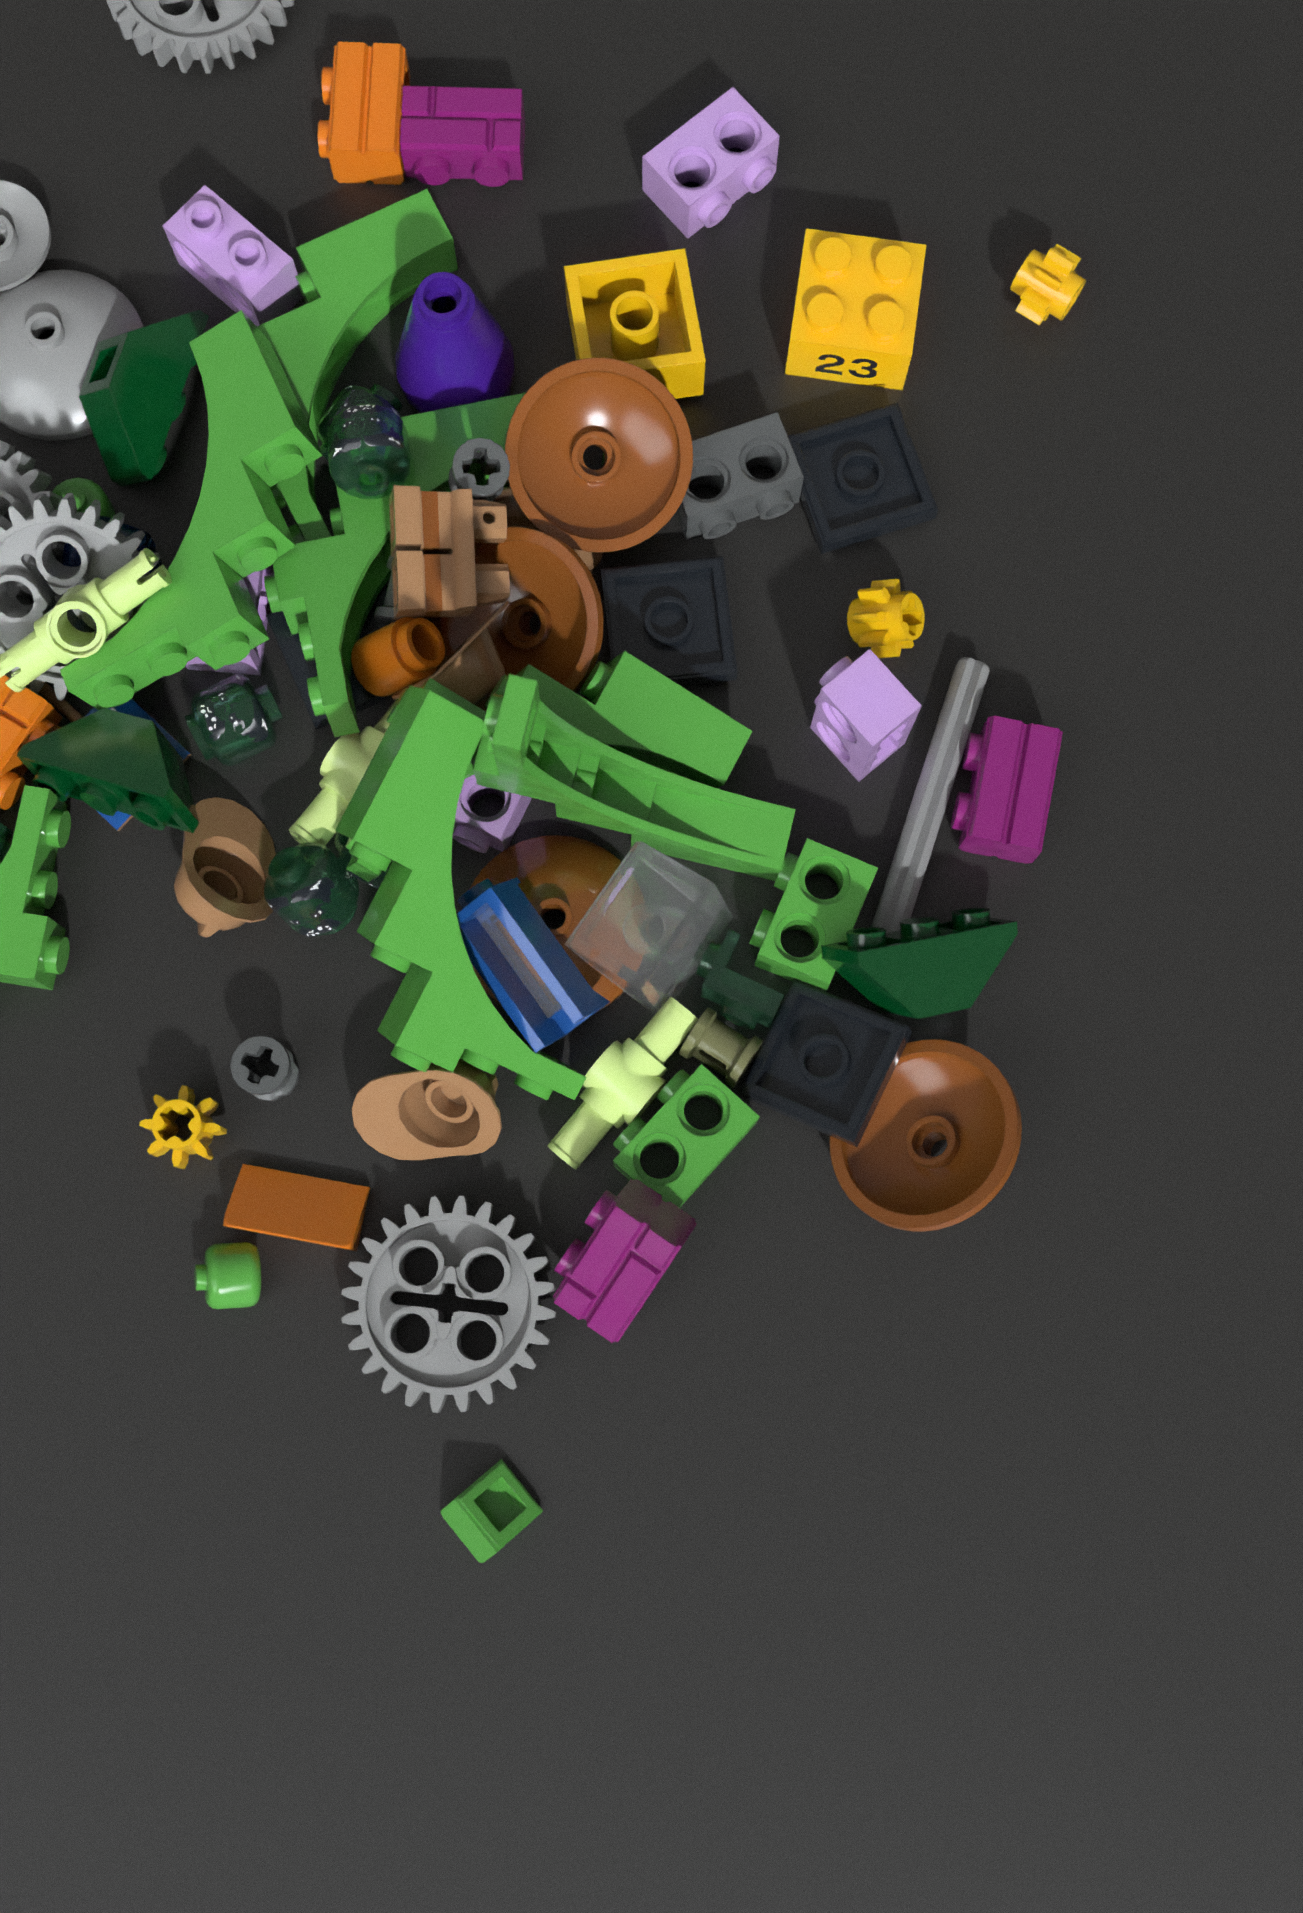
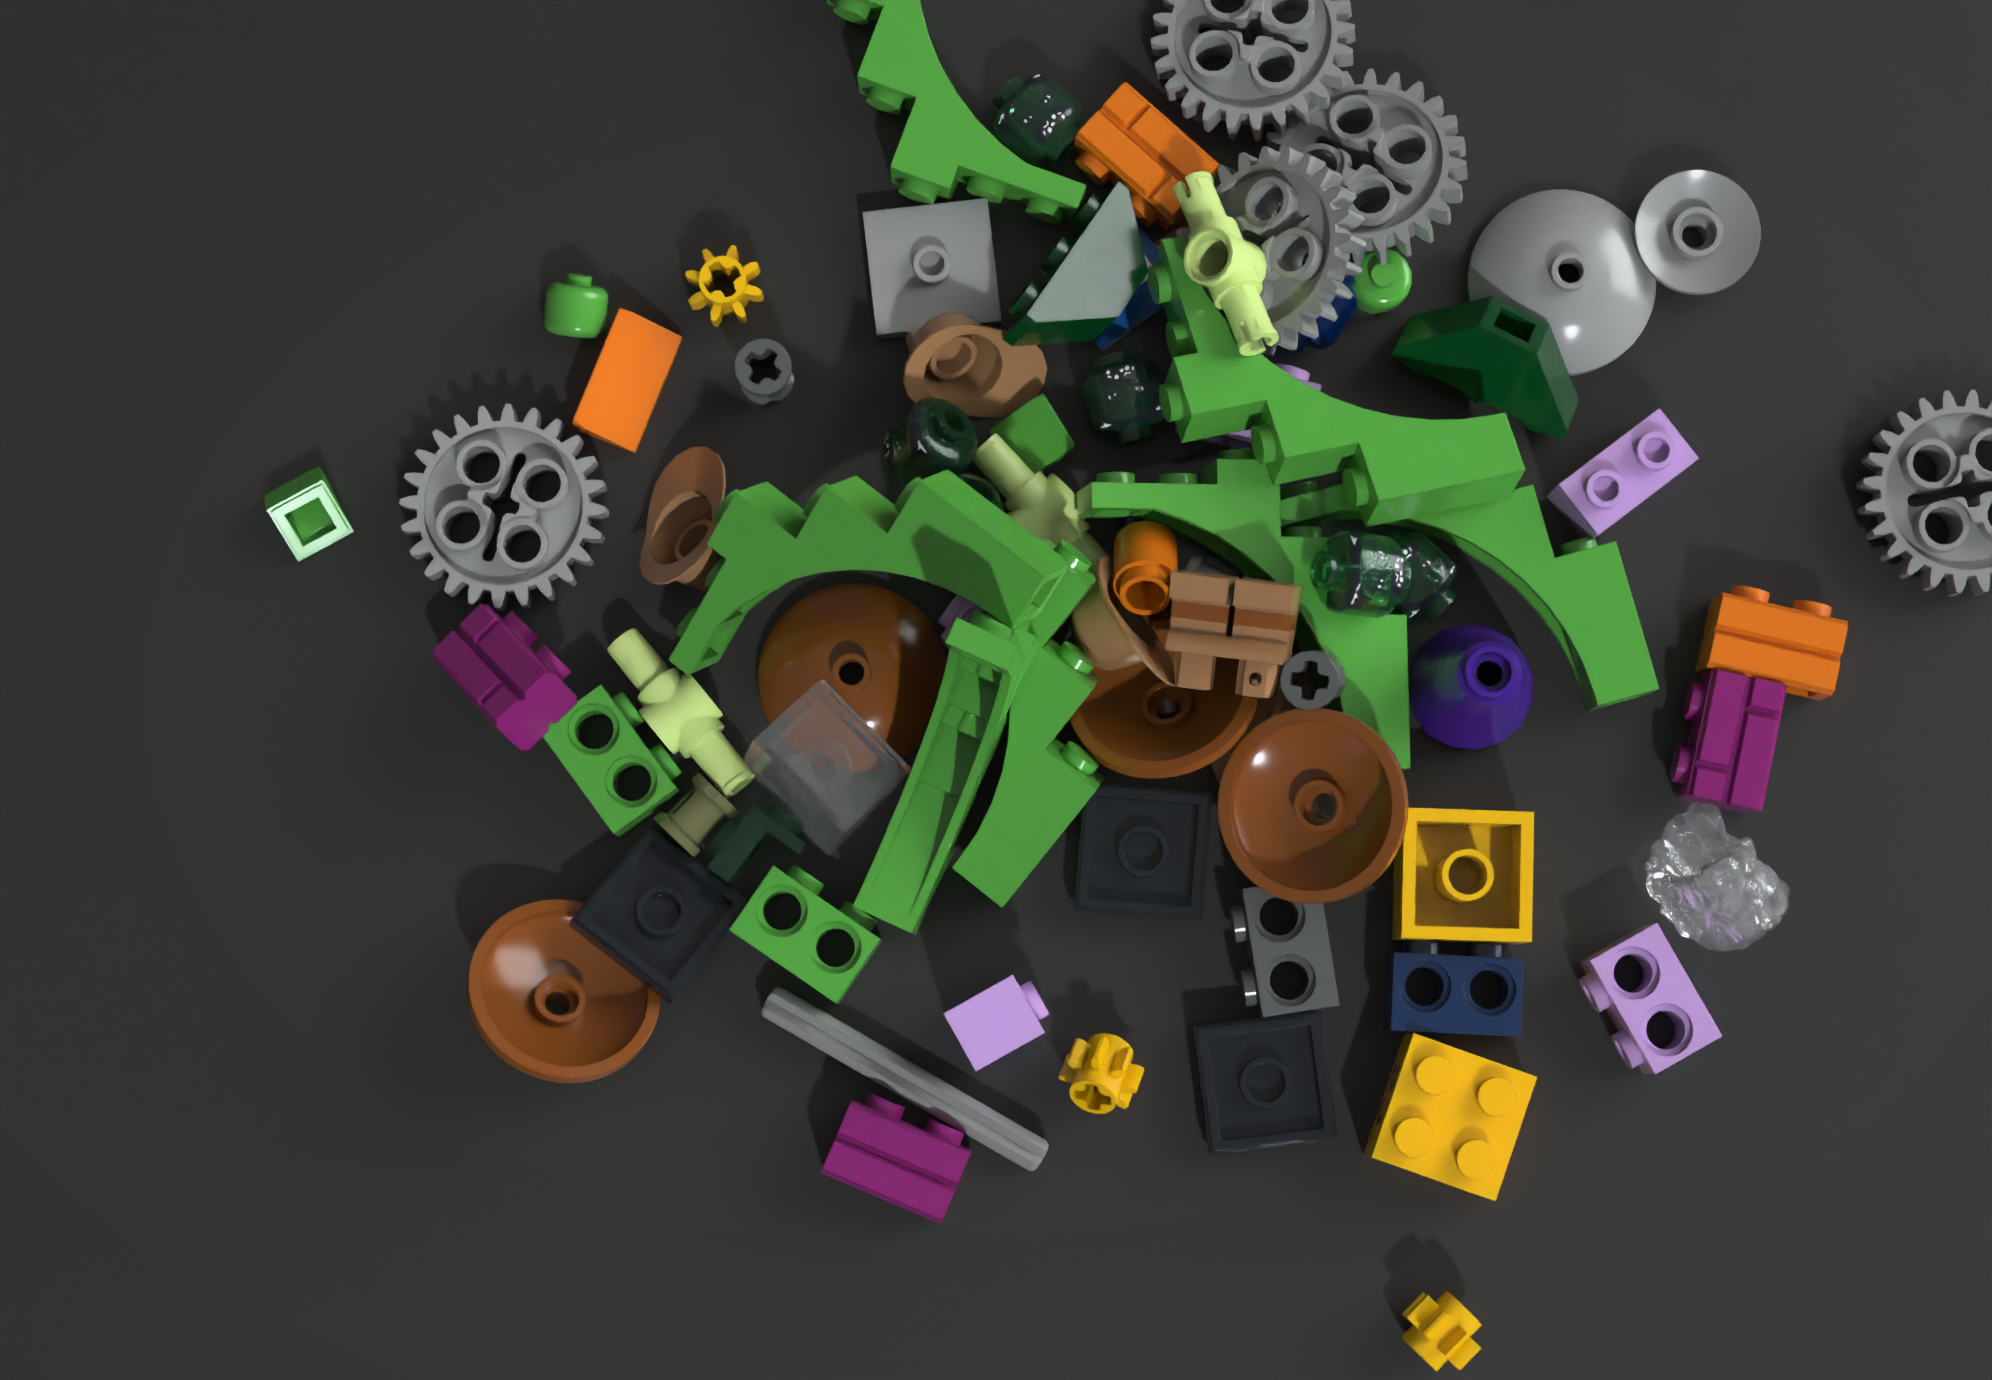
camera: 100 degrees right, 5 degrees up
(131, 932) = (931, 265): none -> light grey plate
(282, 795) = (1036, 435): none -> bright green slope
(524, 963) = (805, 632): blue window -> none
(598, 121) = (1713, 882): none -> clear hair
(749, 327) = (1452, 1007): none -> dark blue brick
(926, 964) = (732, 1033): dark green slope -> none

